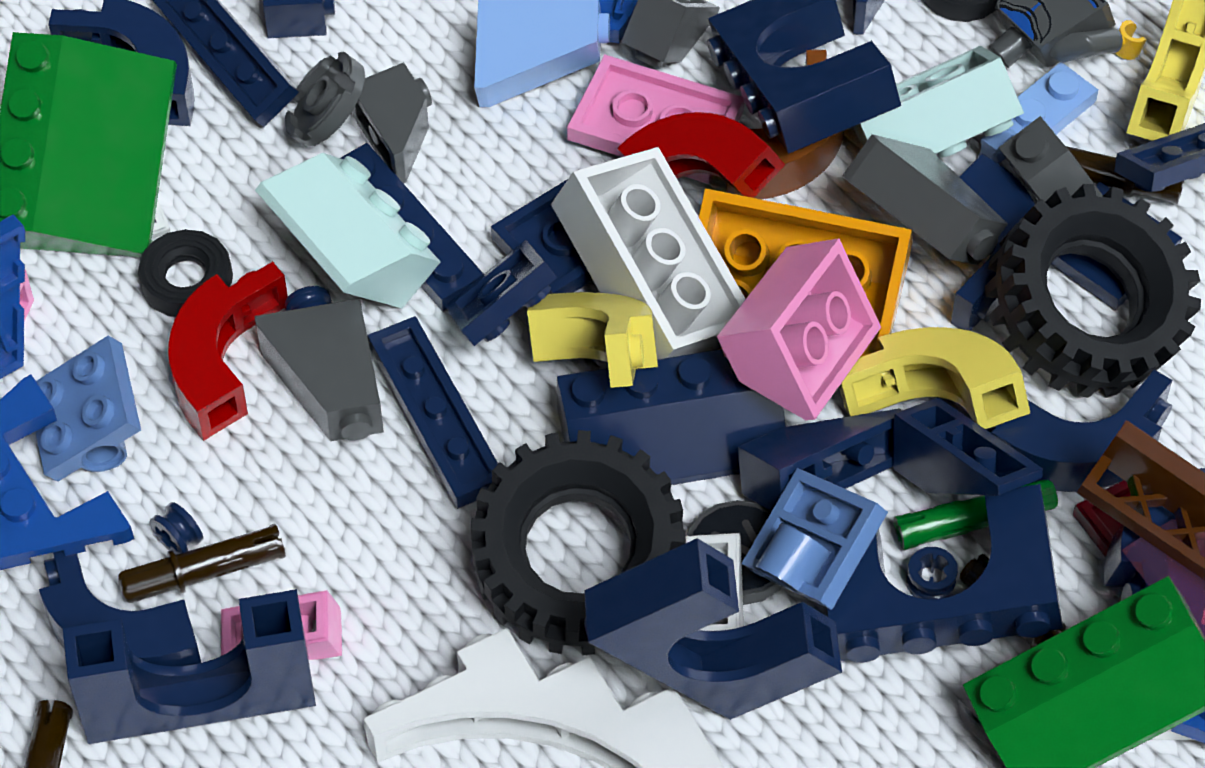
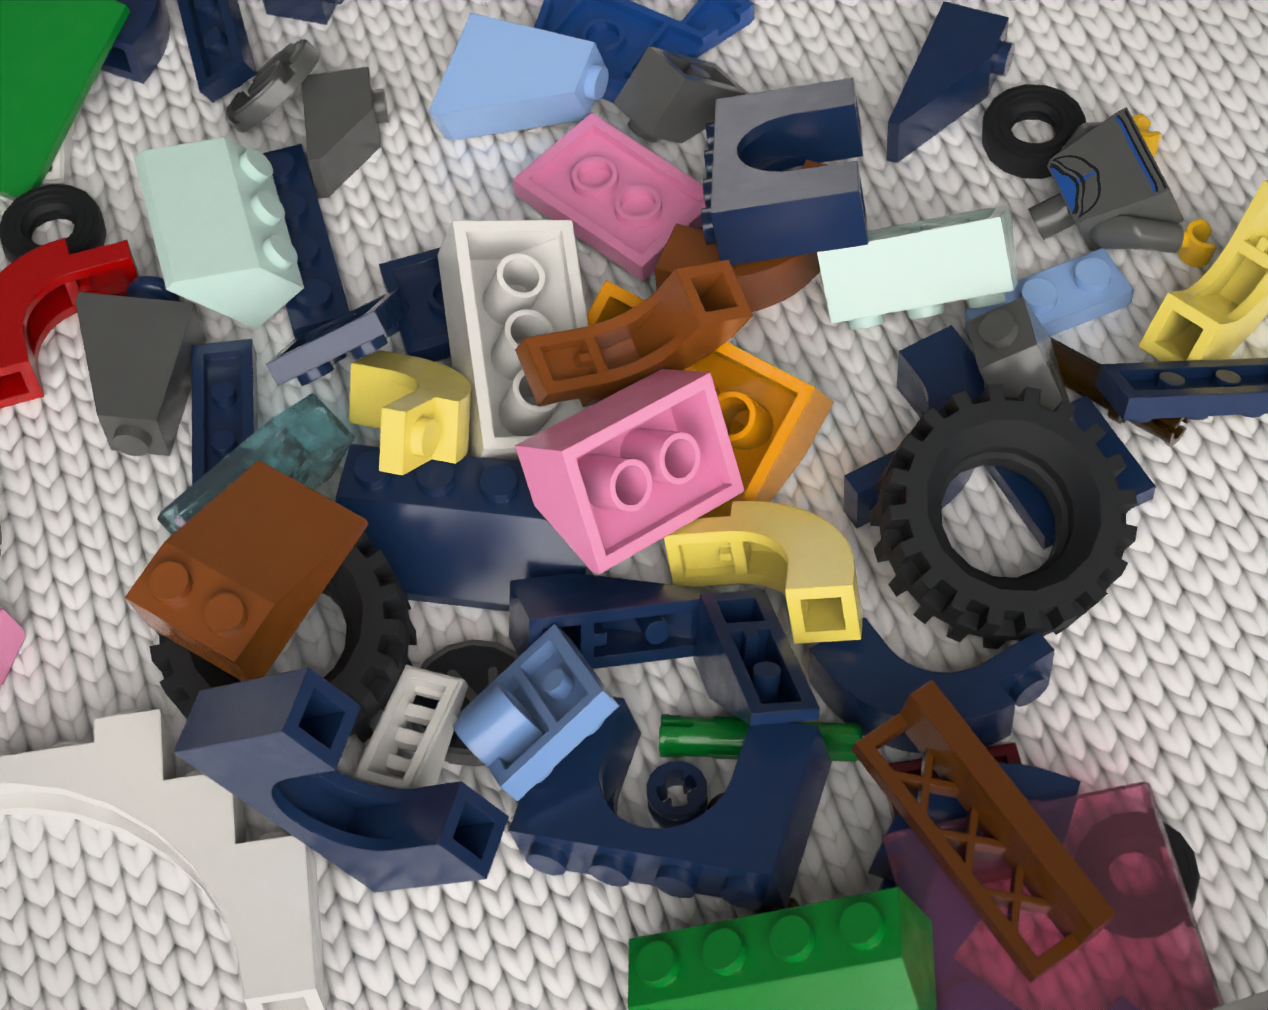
camera: 25 degrees right, 0 degrees up
(493, 423) = (300, 442): none -> clear light blue slope
(547, 496) = (246, 570): none -> dark orange slope
(709, 146) = (625, 231): red arch -> none
(760, 233) = (671, 330): none -> dark orange arch
(926, 198) = (852, 354): dark grey slope -> none

